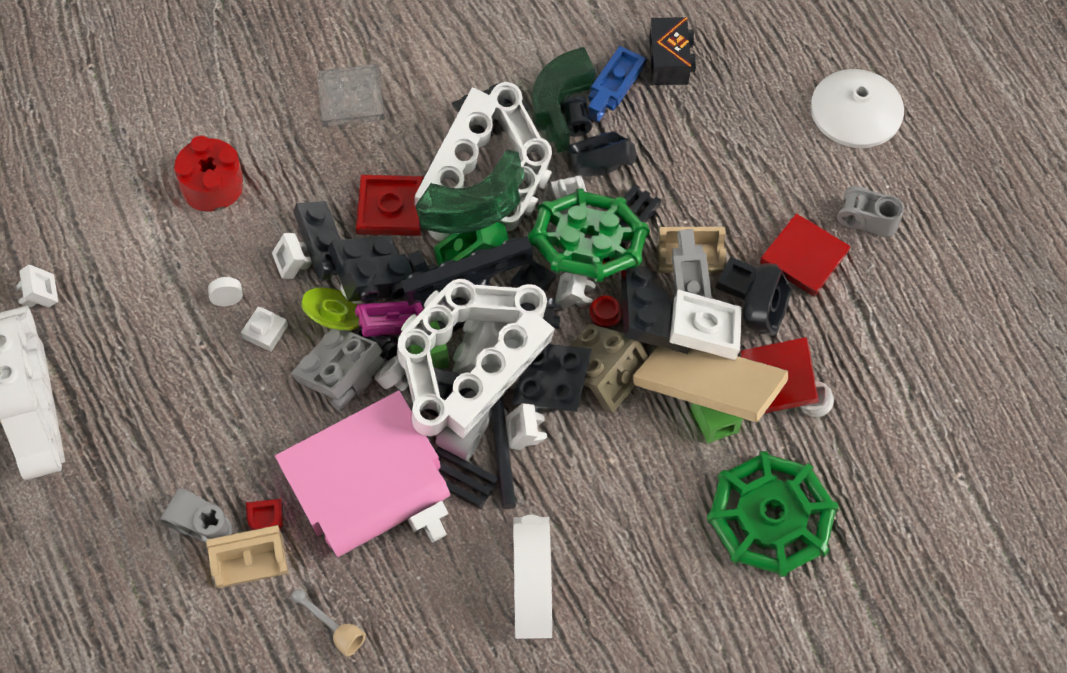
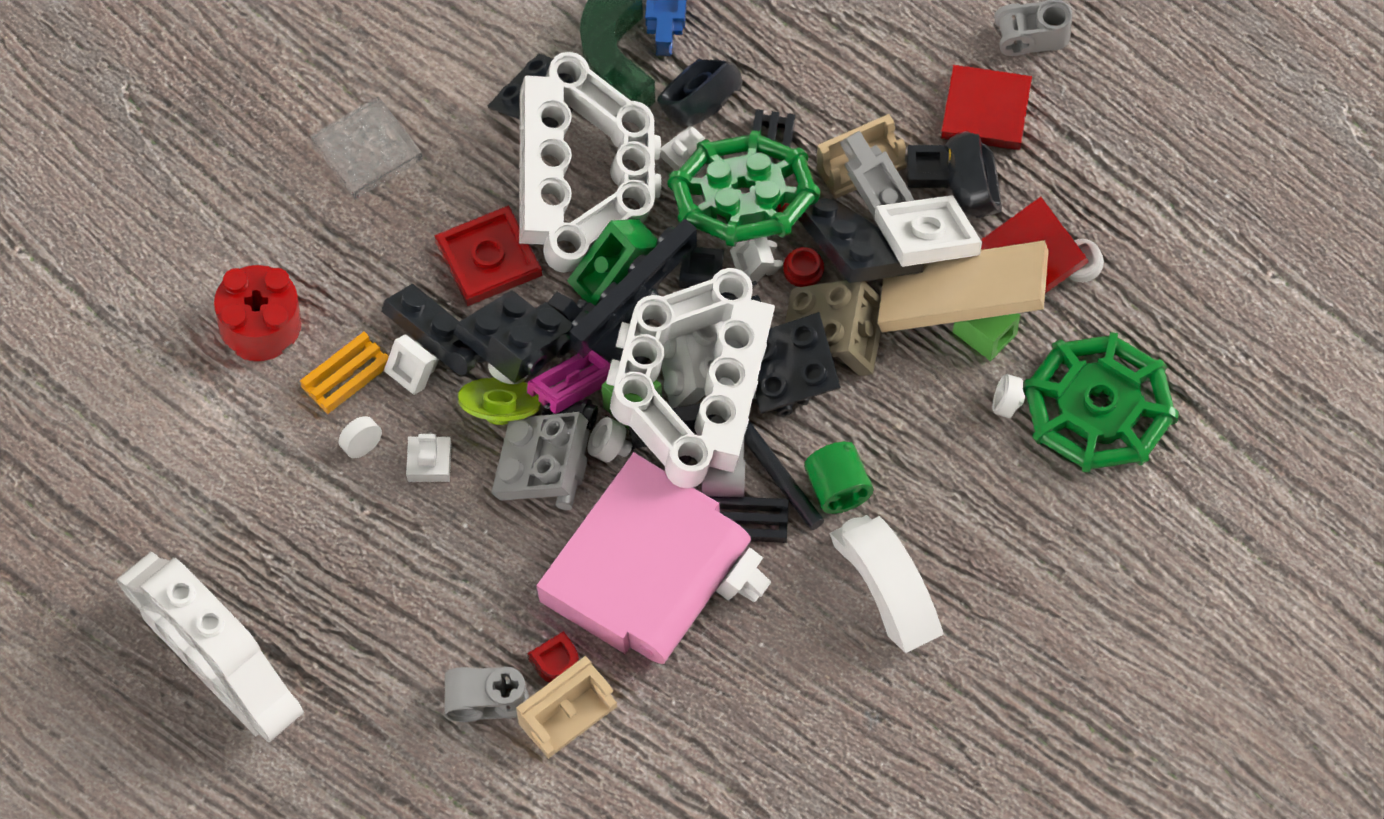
camera: 25 degrees left, 0 degrees up
(37, 287) = (135, 529): white tile -> none
(244, 238) = (336, 362): none -> light orange tile
(346, 637) = (723, 737): tan hinge -> none
(473, 207) = (605, 214): clear green arch -> none
(522, 427) = (786, 432): white tile -> none
(540, 478) = (838, 477): none -> green piece
(575, 115) = (643, 55): black bush -> none
(704, 476) = (1008, 396): none -> white tile

